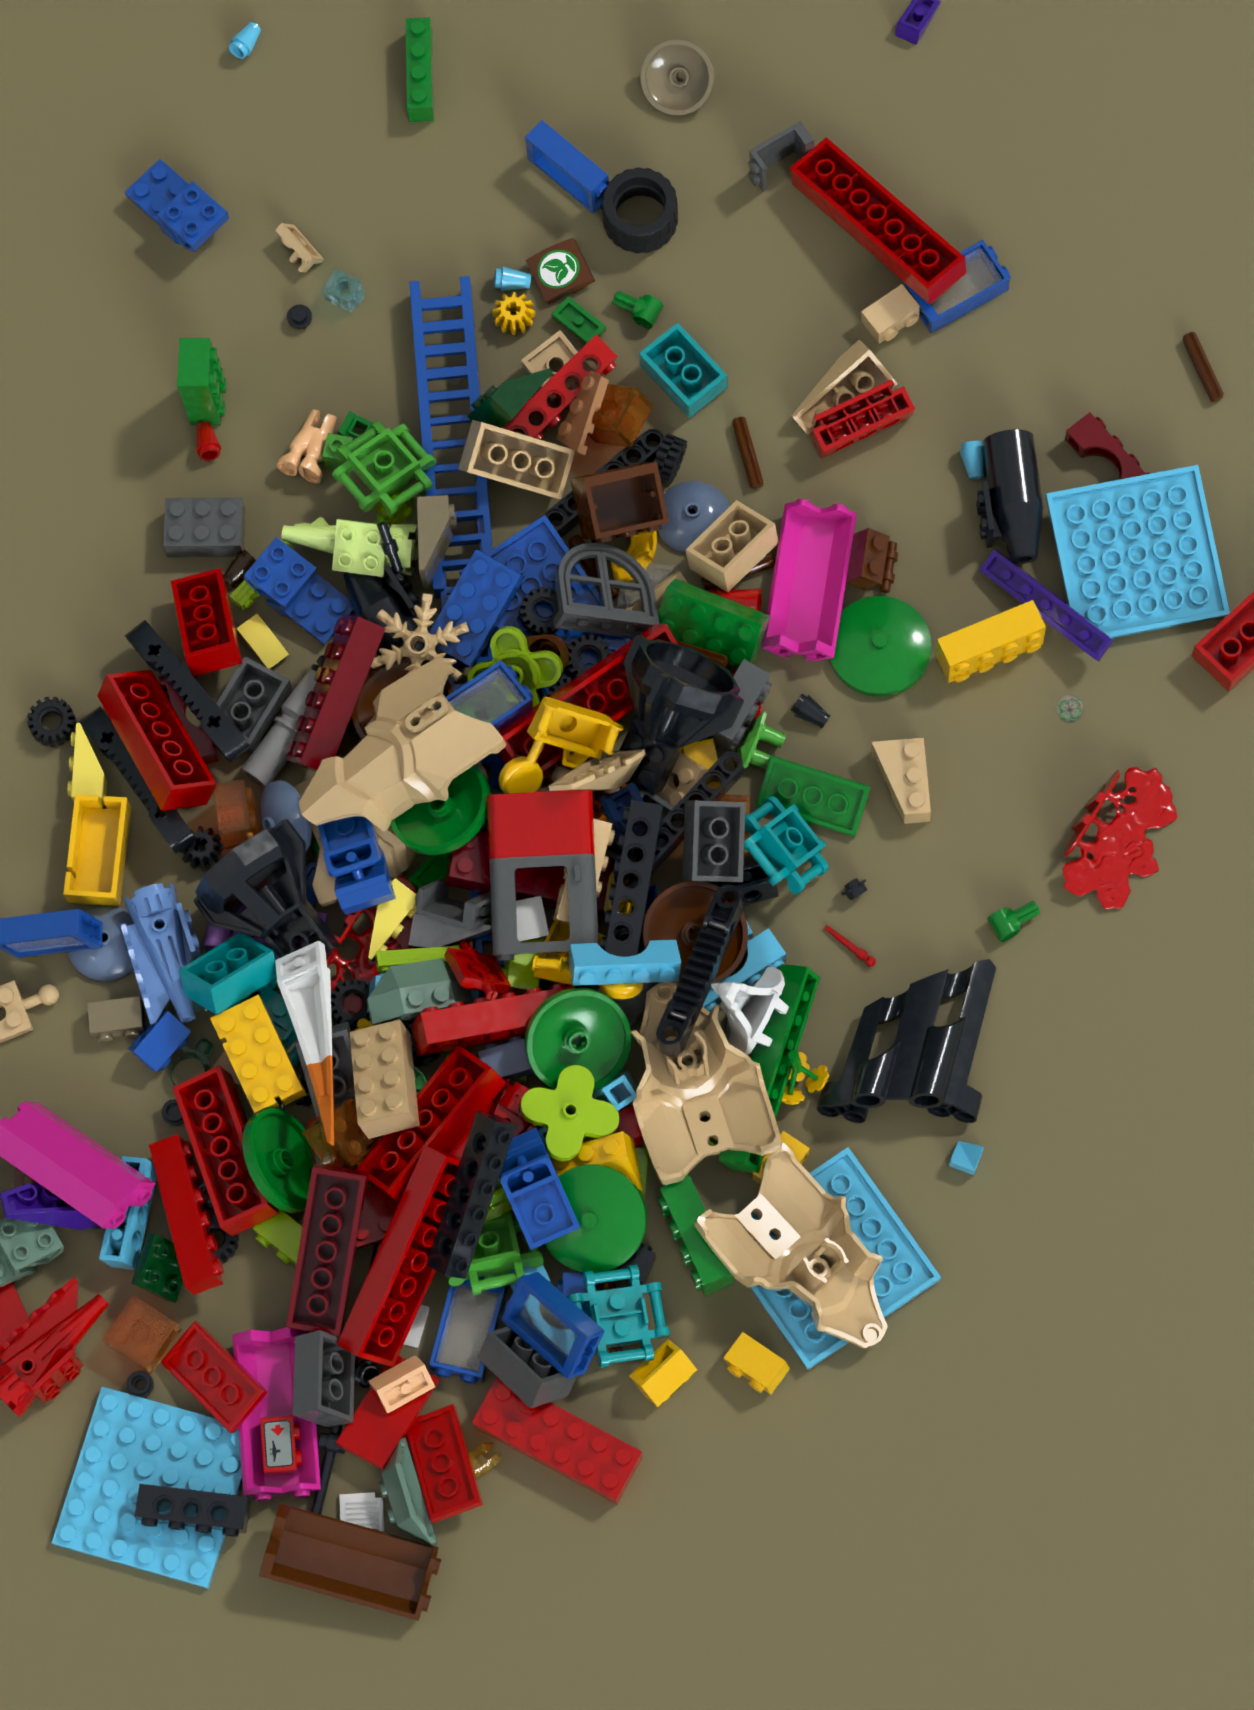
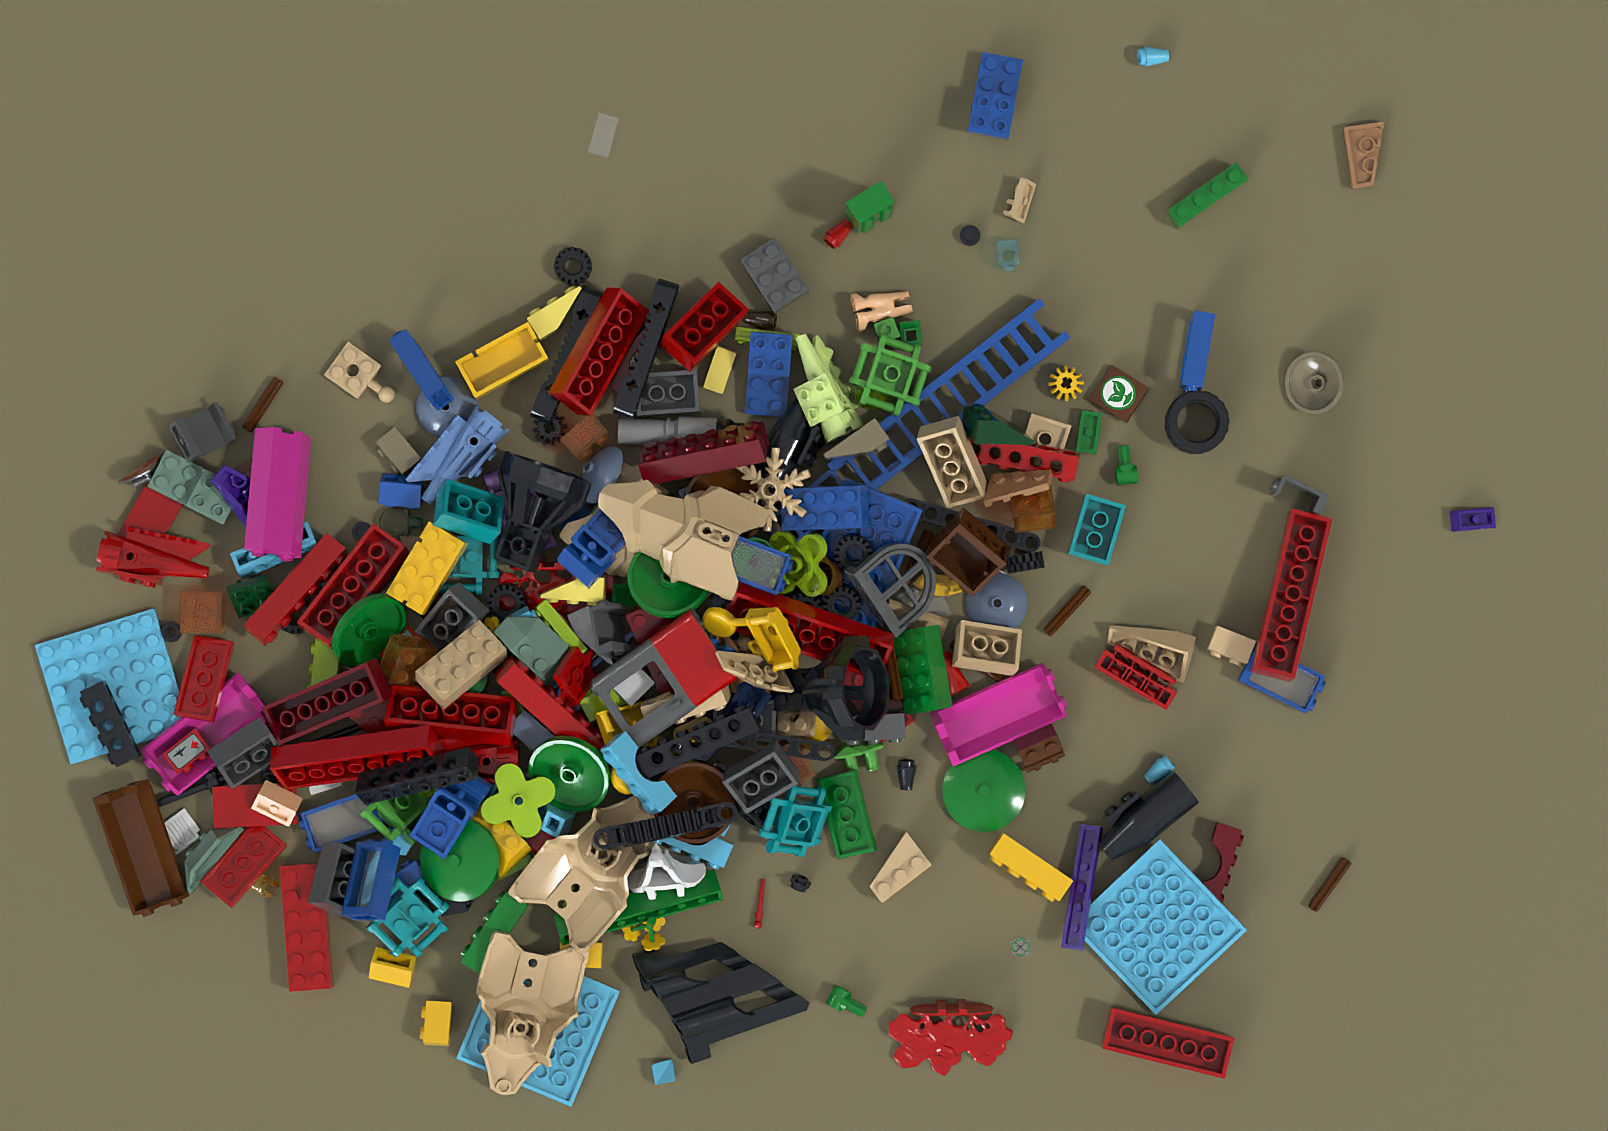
camera: 50 degrees right, 15 degrees up
(307, 995) = (483, 577): white plate -> none
(389, 546) = (830, 421): black bar -> none
(511, 279) = (1090, 364): medium azure cone -> none

